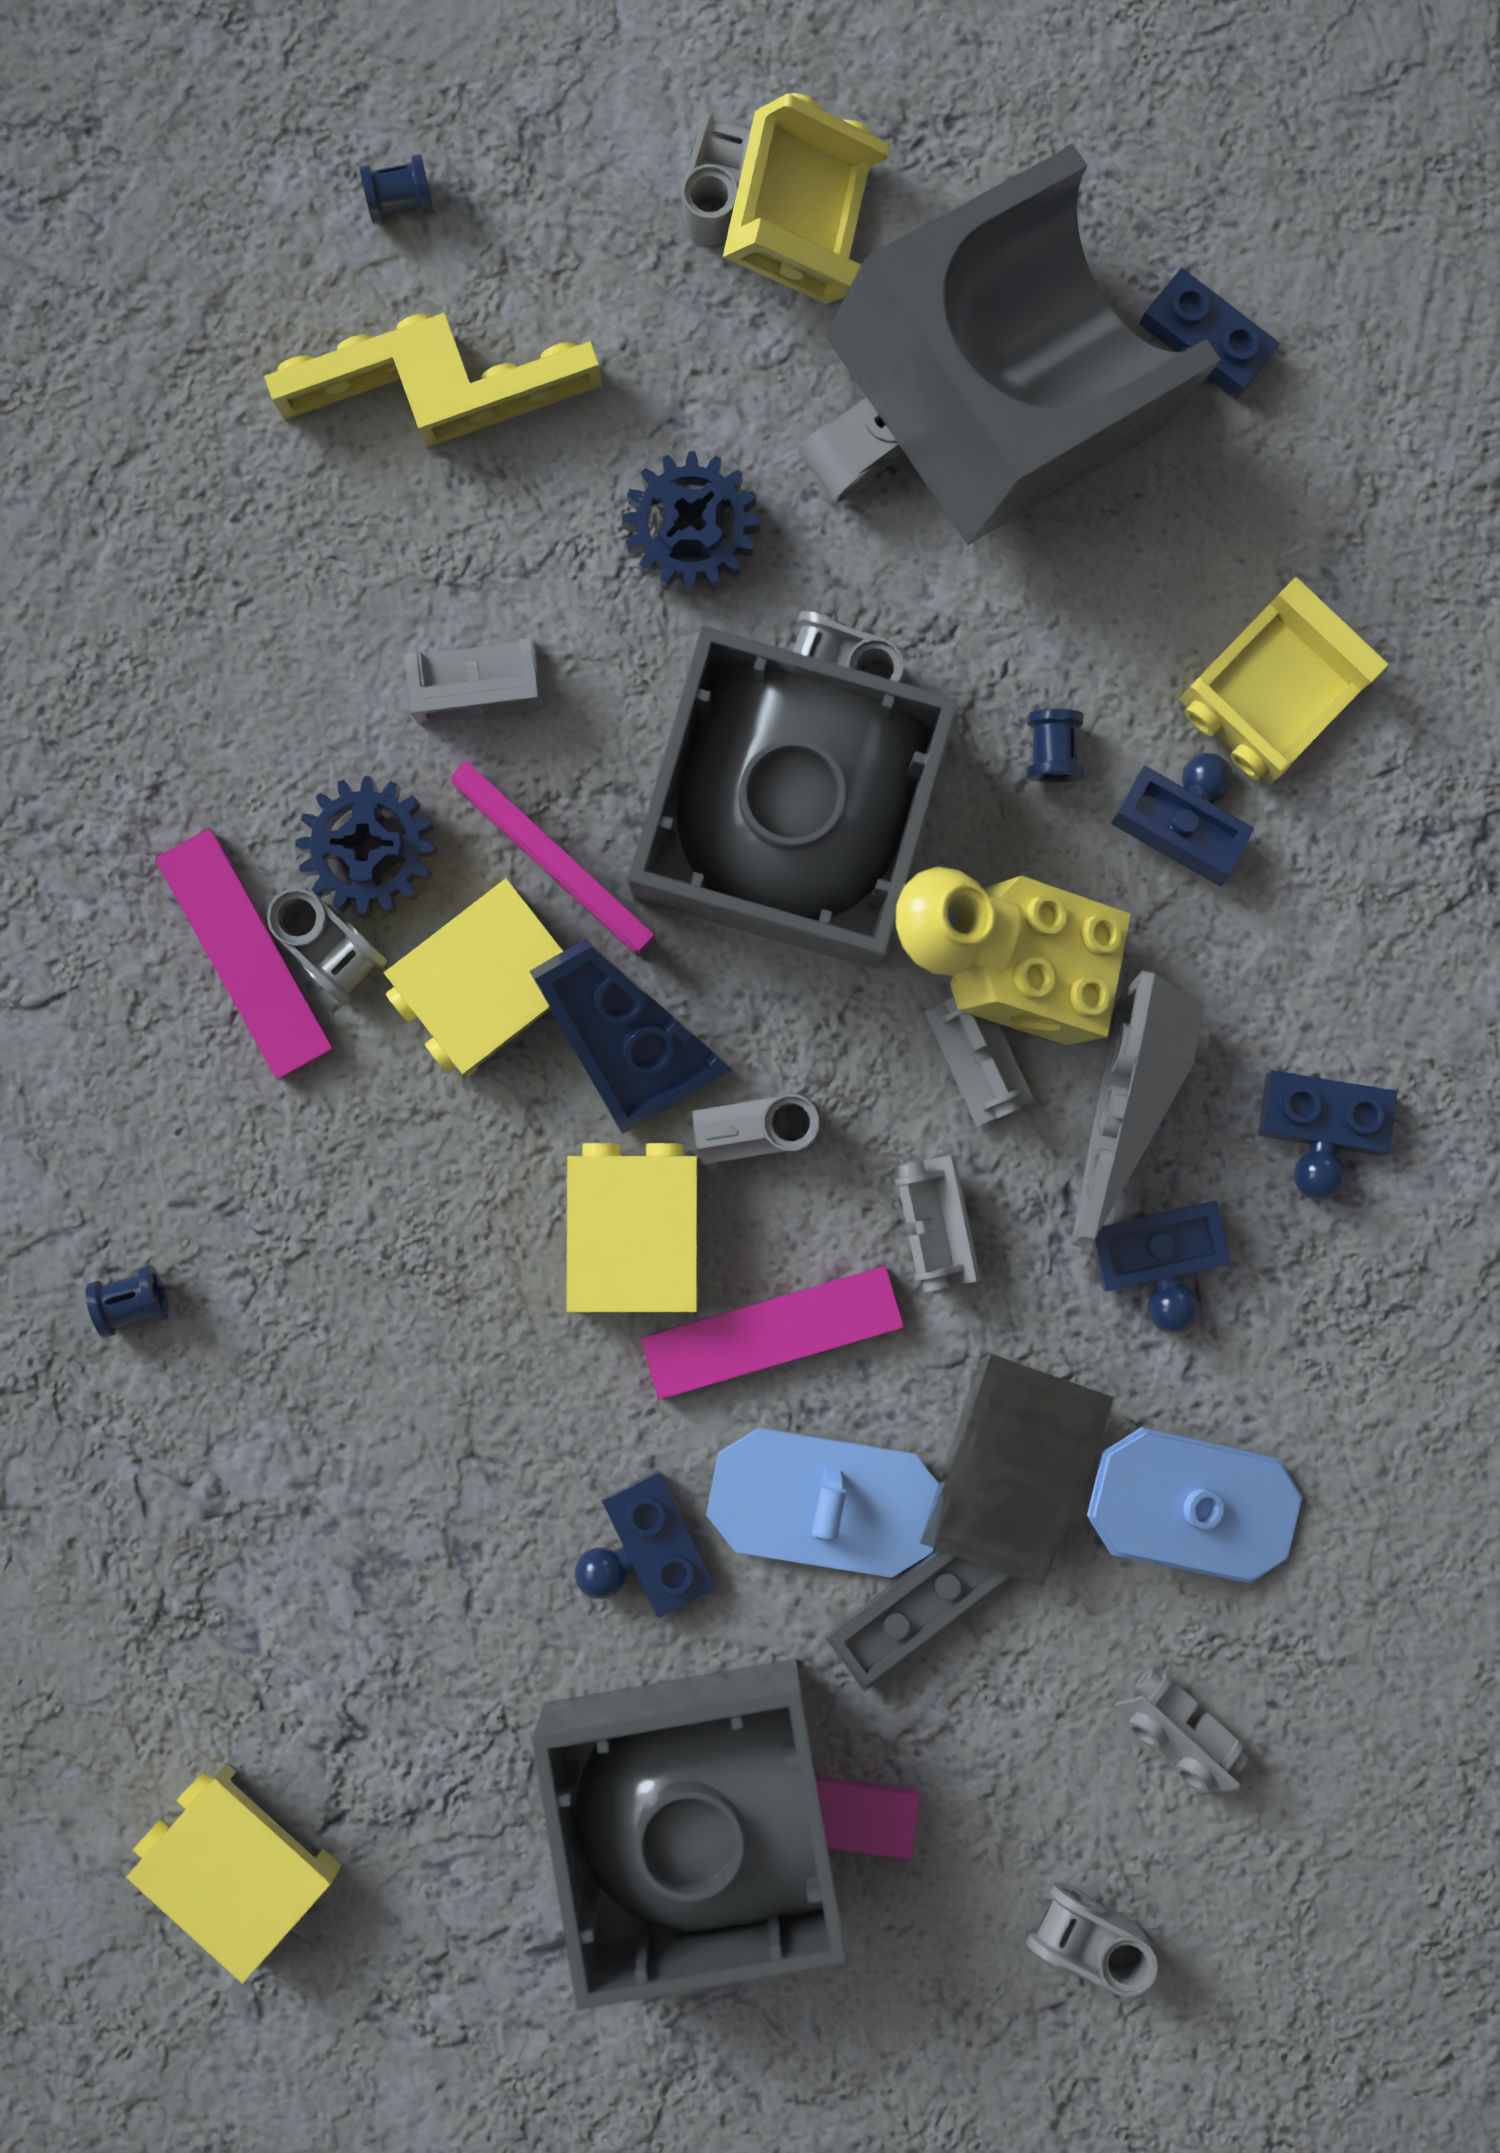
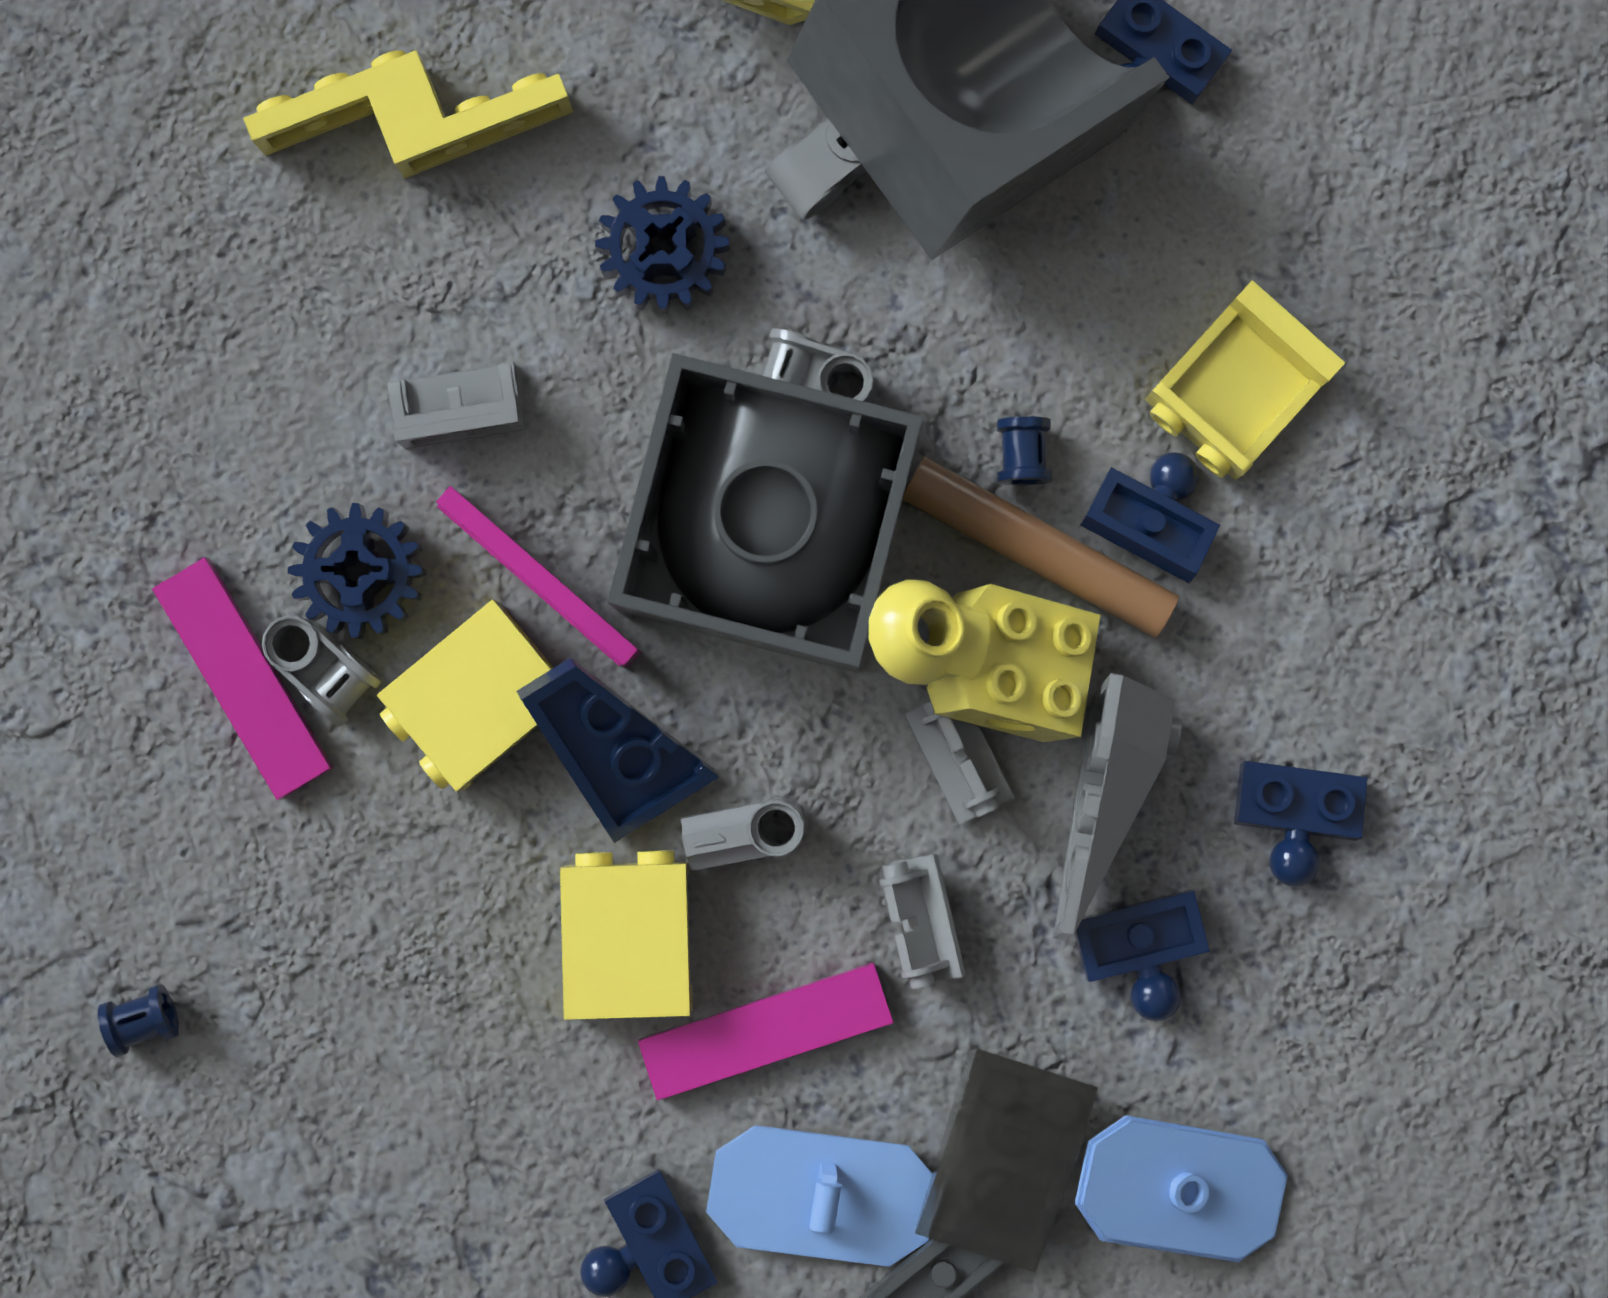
camera: 10 degrees right, 0 degrees up
(1069, 845) = (1040, 547): none -> medium nougat piece

